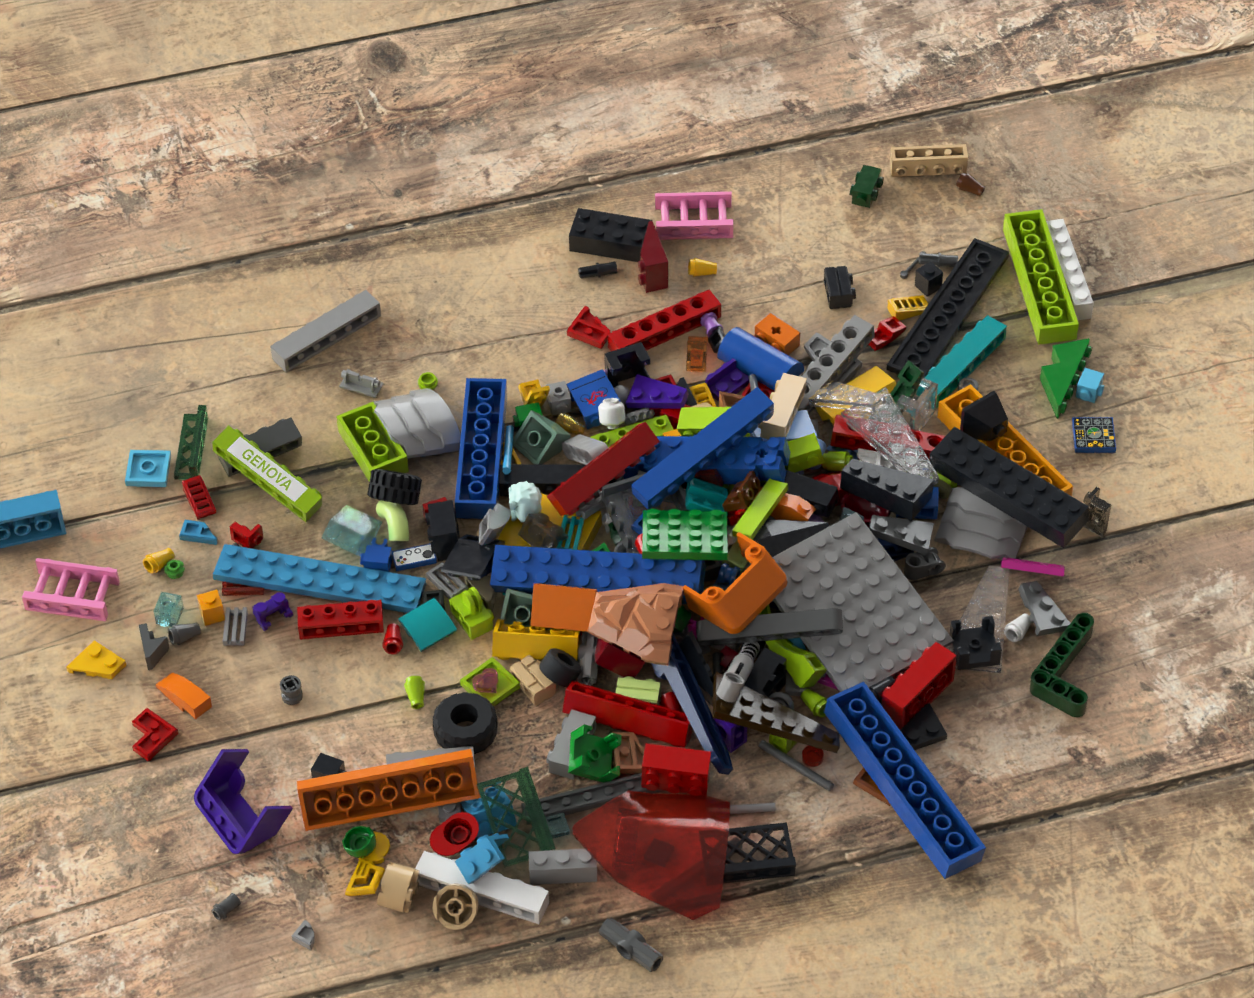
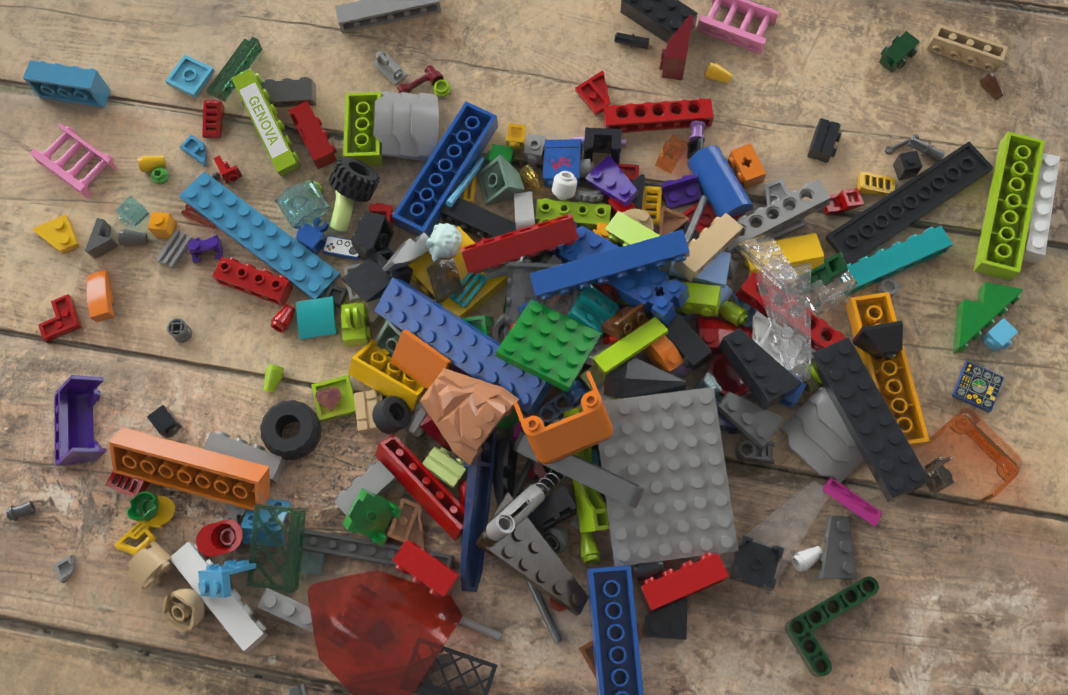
camera: 30 degrees right, 20 degrees up
(321, 469) = (312, 135): none -> red wedge
(323, 846) = (141, 486): none -> red slope
(407, 374) = (431, 75): none -> dark red brick
(1123, 473) = (1007, 460): none -> clear orange windscreen

